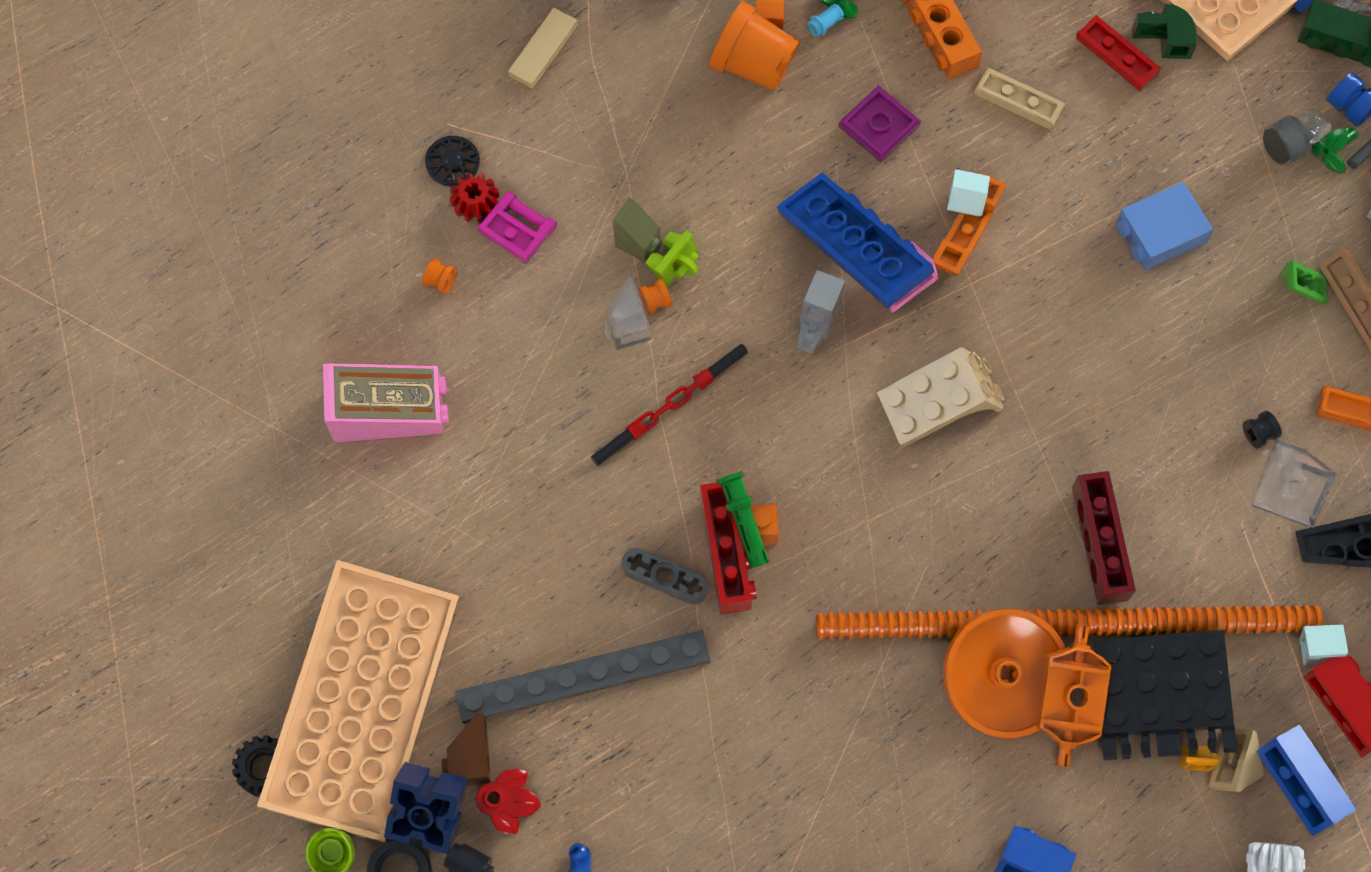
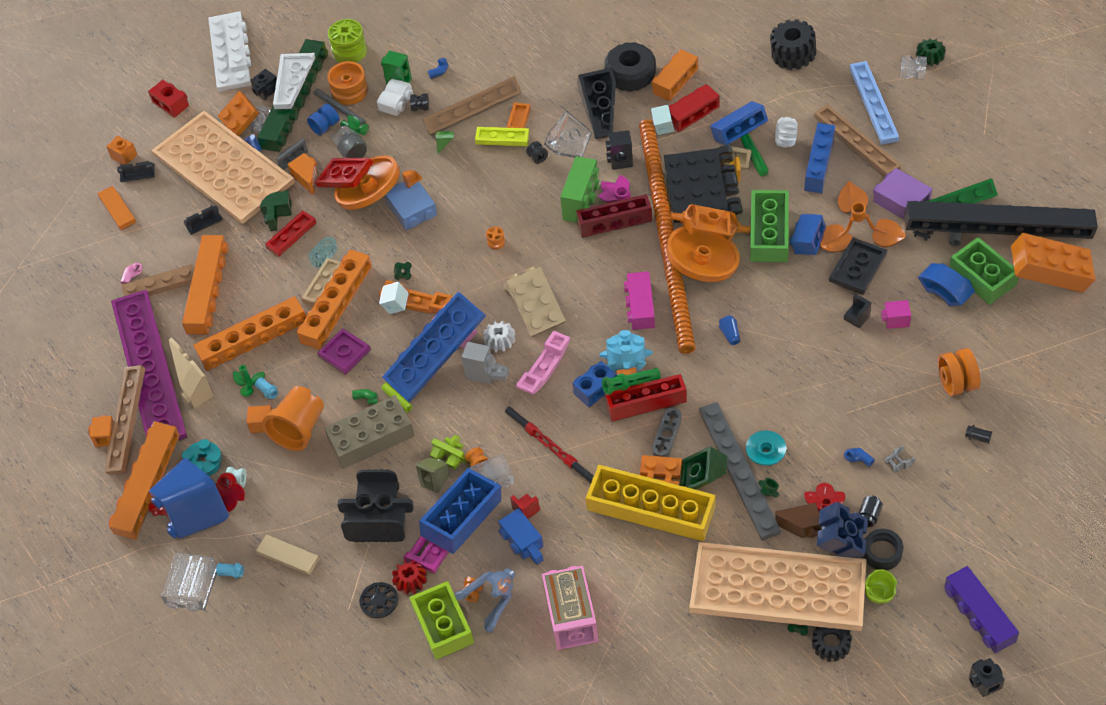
camera: 90 degrees left, 15 degrees down
(393, 232) = (441, 620): none -> lime brick
(427, 308) = (502, 586): none -> sand blue piece
(512, 349) = (522, 536): none -> blue hinge
(533, 532) = (651, 502): none -> yellow brick
(545, 722) = (769, 487): none -> dark green plate
(560, 263) = (460, 510): none -> blue brick
(565, 357) = (527, 505): none -> red panel
(566, 151) = (374, 521): none -> black piece
(580, 618) = (703, 468): none -> dark green slope
(604, 706) = (767, 441): none -> teal dish
(605, 559) = (661, 468): none -> orange plate
(725, 152) = (369, 431): none -> dark tan brick
(761, 479) = (593, 382): none -> blue brick
(770, 205) = (390, 391): none -> lime piece
(796, 154) = (365, 393): none -> green arm
(813, 524) = (625, 351): none -> medium azure brick
(814, 405) = (545, 365): none -> bright pink slope
(849, 700) = (729, 328): none -> blue cone
(879, 332) = (499, 336): none -> white gear
(924, 562) = (639, 300): none -> dark pink brick
(987, 124) = (334, 299): none -> orange brick
(1031, 208) = (398, 270): none -> dark green plate
(1058, 796) = (769, 226): none -> bright green brick
(1079, 99) = (322, 251): none -> clear light blue beam
(1083, 344) = (491, 235): none -> orange wheel
(1163, 485) = (579, 187): none -> bright green brick
(1172, 549) = (615, 191): none -> dark pink plate
(1202, 220) = (411, 177): none -> orange tile
(1204, 158) = (373, 185): none -> orange dish
(1230, 125) = (343, 172): none -> red plate
(1235, 801) = (755, 155): none -> green axle
(1242, 73) = (304, 172): none -> orange slope
(1248, 561) = (619, 149): none -> black brick
(1283, 53) = (291, 153): none -> dark grey slope
(1304, 377) = (502, 136): none -> neon yellow plate

